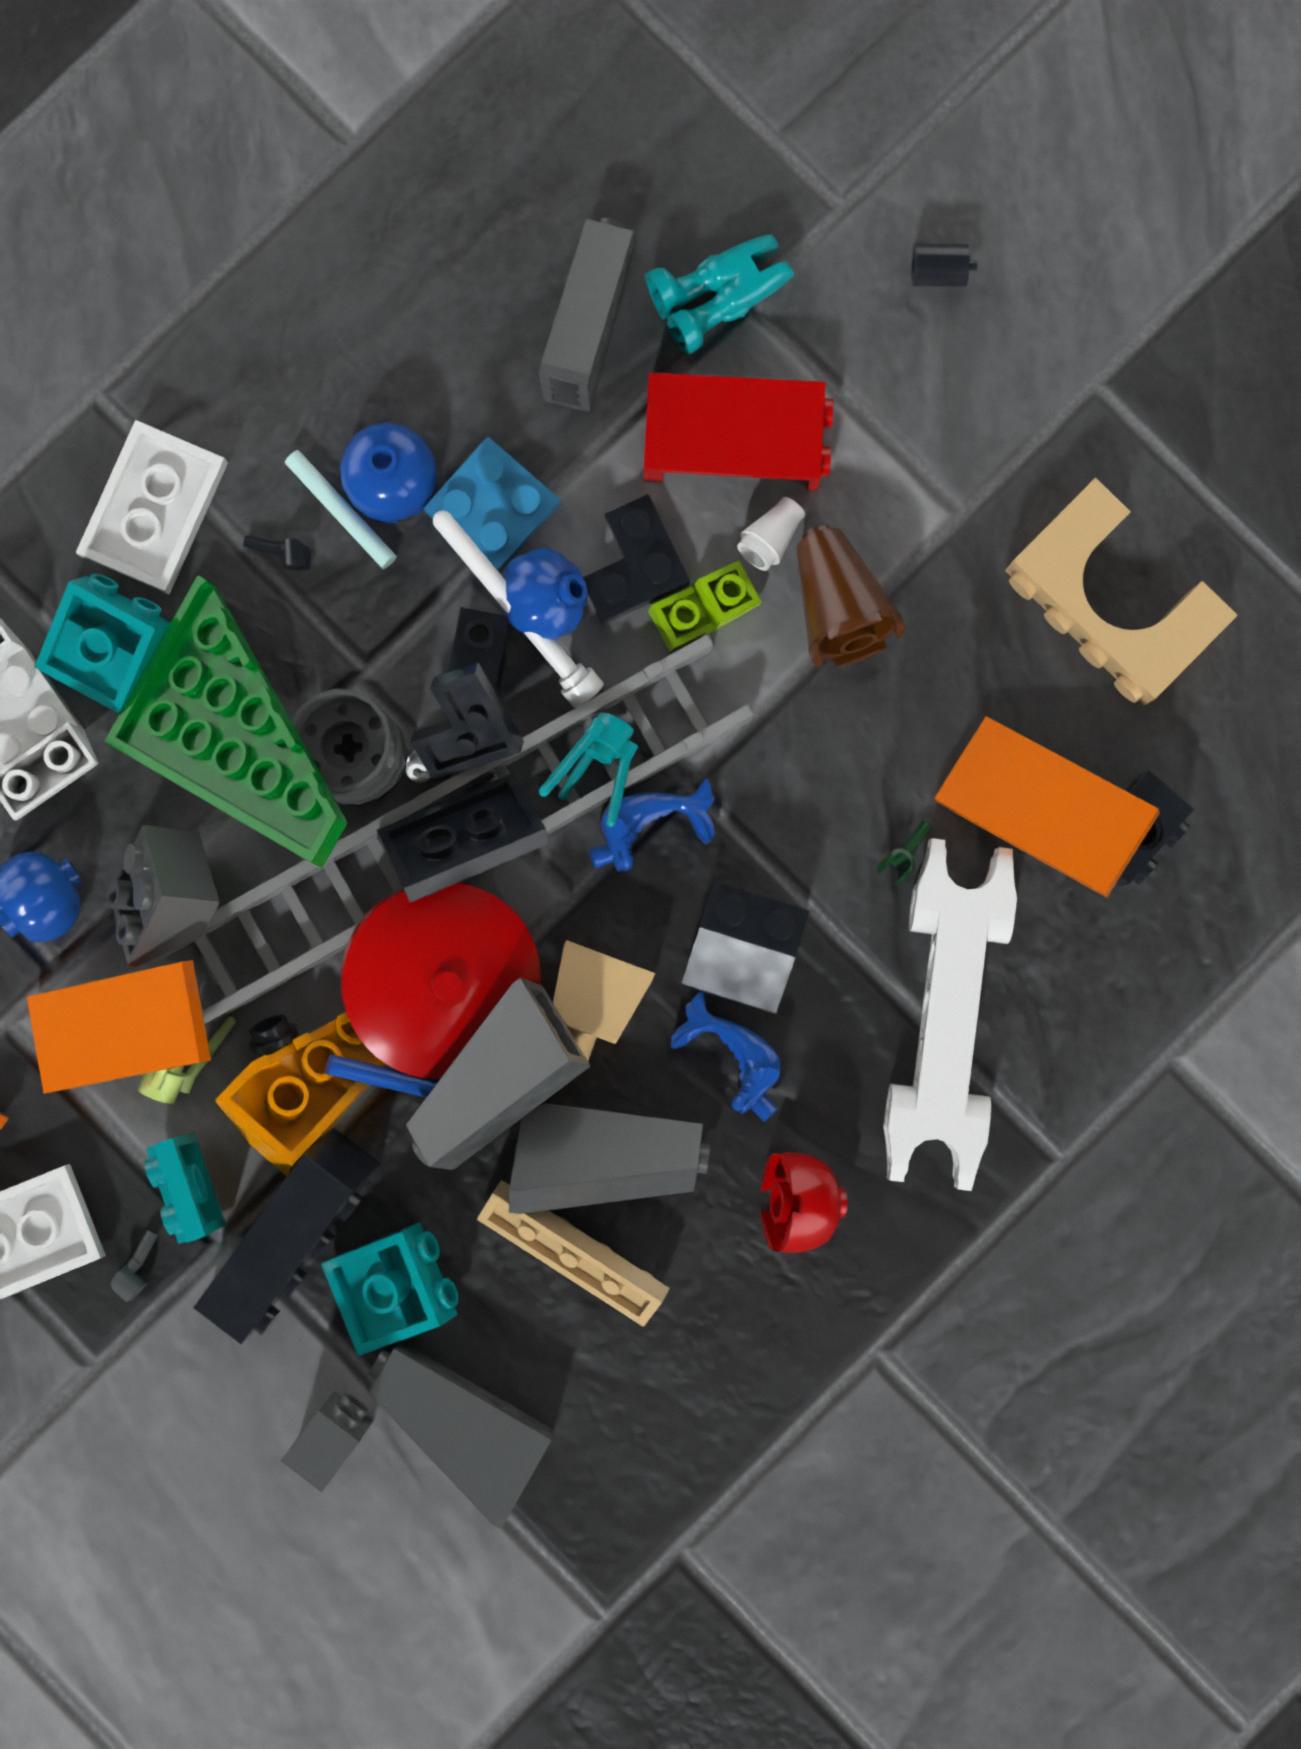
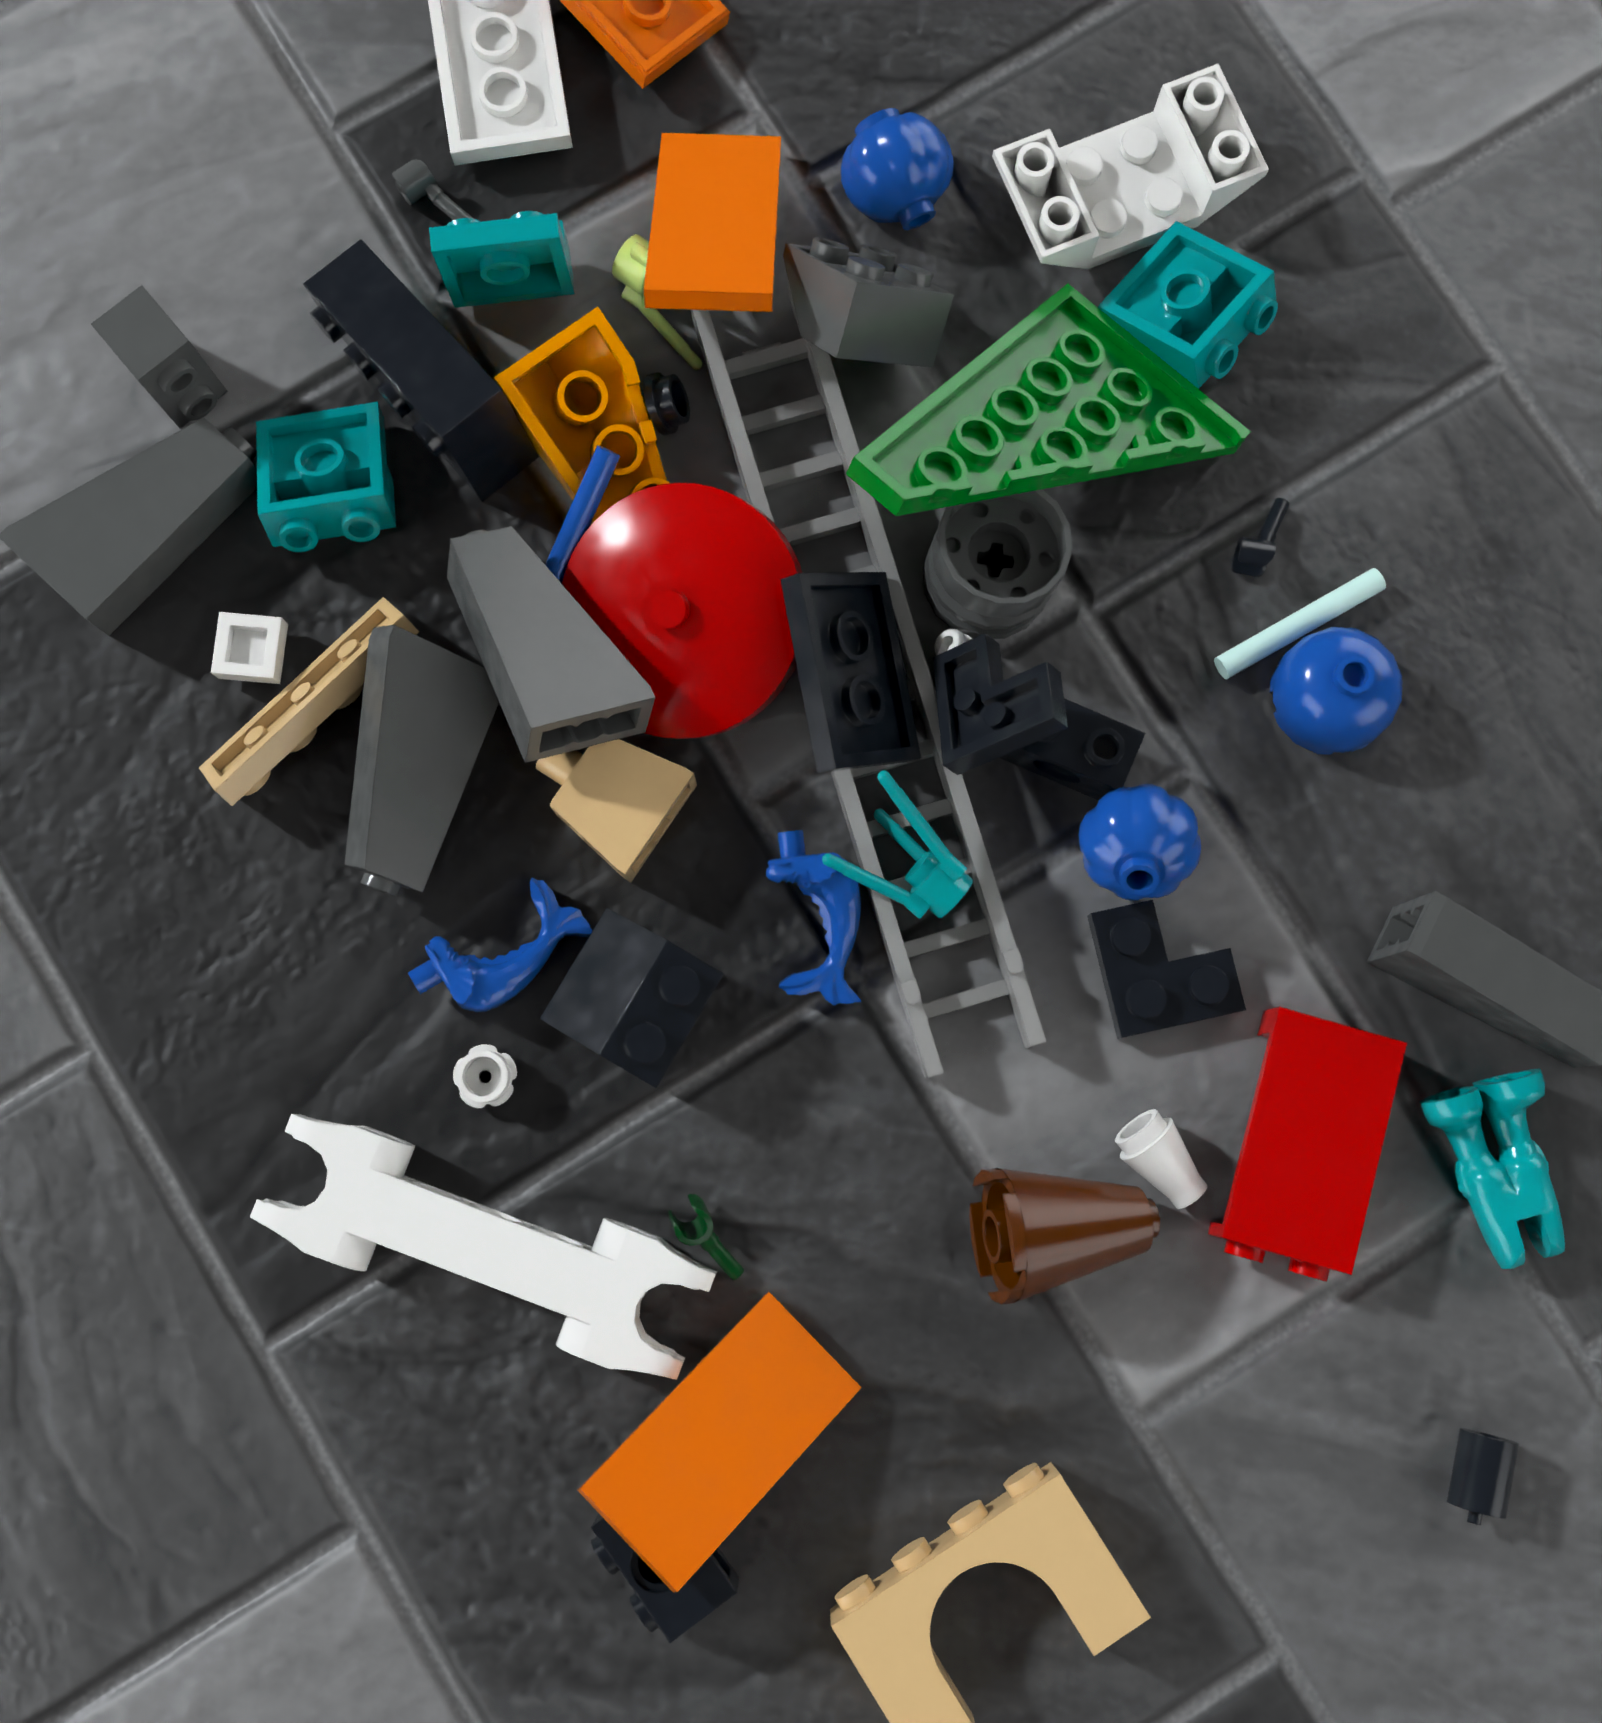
camera: 100 degrees right, 5 degrees down
(152, 507) = (1347, 397): white plate -> none
(495, 502) = (1269, 811): dark azure plate -> none
(541, 1311) = (249, 647): none -> white plate
(578, 682) = (1021, 863): white piece -> none
(704, 606) = (1084, 1050): lime slope -> none
(802, 1202) = (290, 995): red cylinder -> none
(840, 1047) = (467, 1076): none -> white plate

